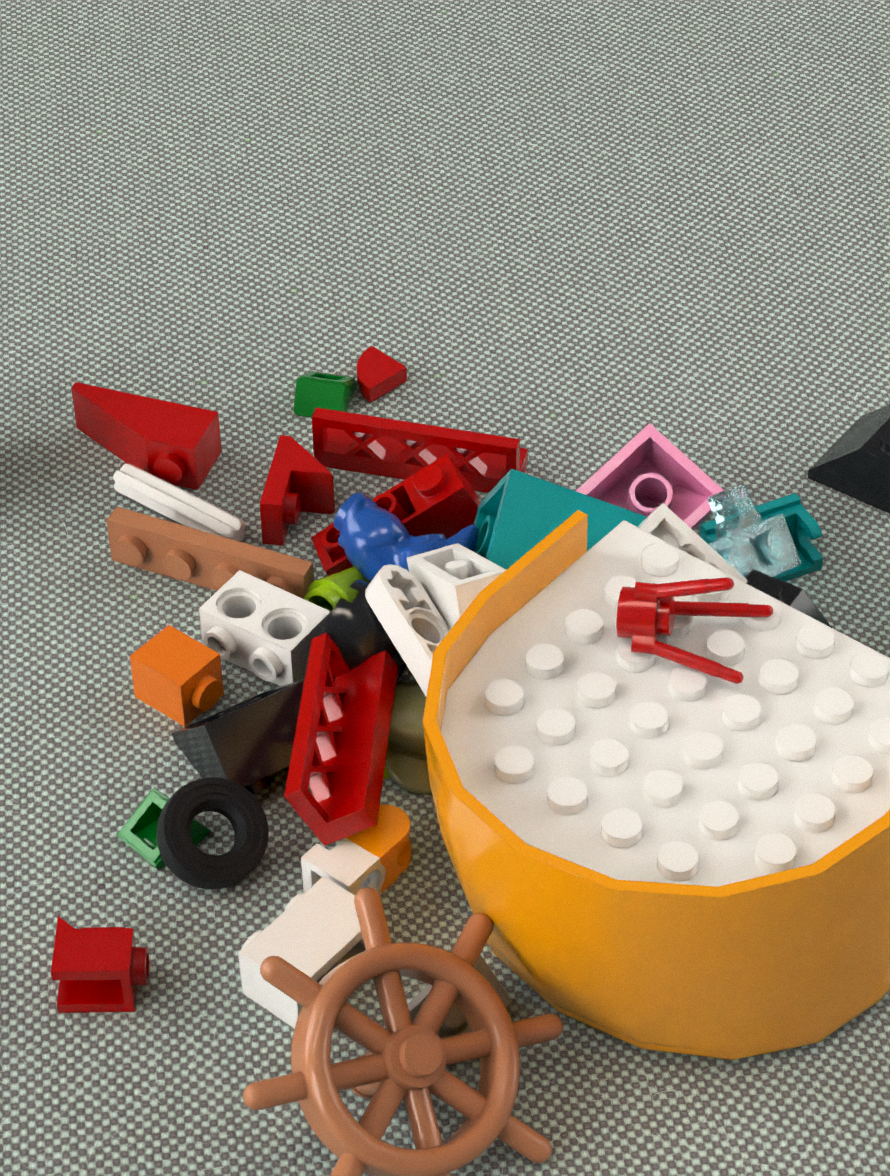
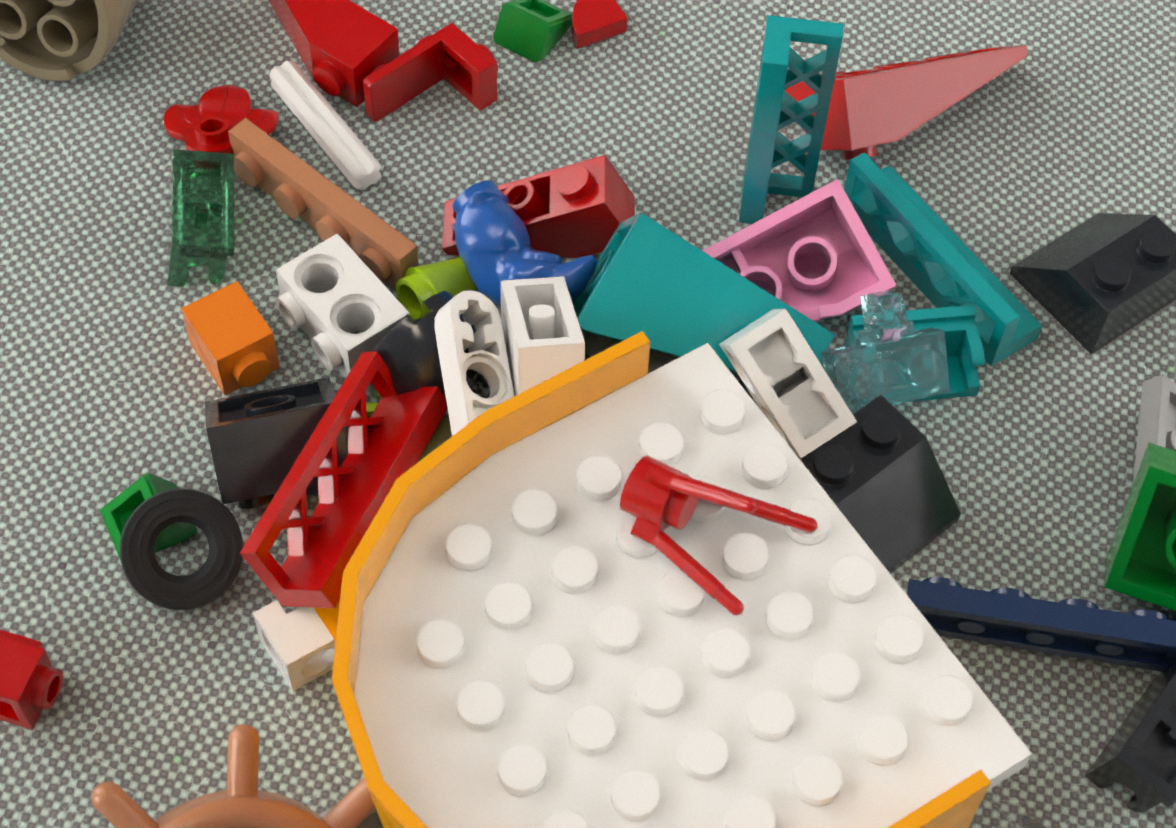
camera: 15 degrees right, 15 degrees up
(78, 529) = (207, 124): none -> red plate
(104, 593) = (200, 214): none -> clear green hinge
(250, 437) = (436, 57): none -> red bracket
(293, 486) = (439, 136): red slope -> none
(311, 934) = (193, 723): white brick -> none
(404, 447) = (595, 128): red fence -> none
(578, 382) = (778, 109): none -> teal fence
(653, 374) = (900, 97): none -> wedge
(763, 477) = (937, 257): none -> teal fence

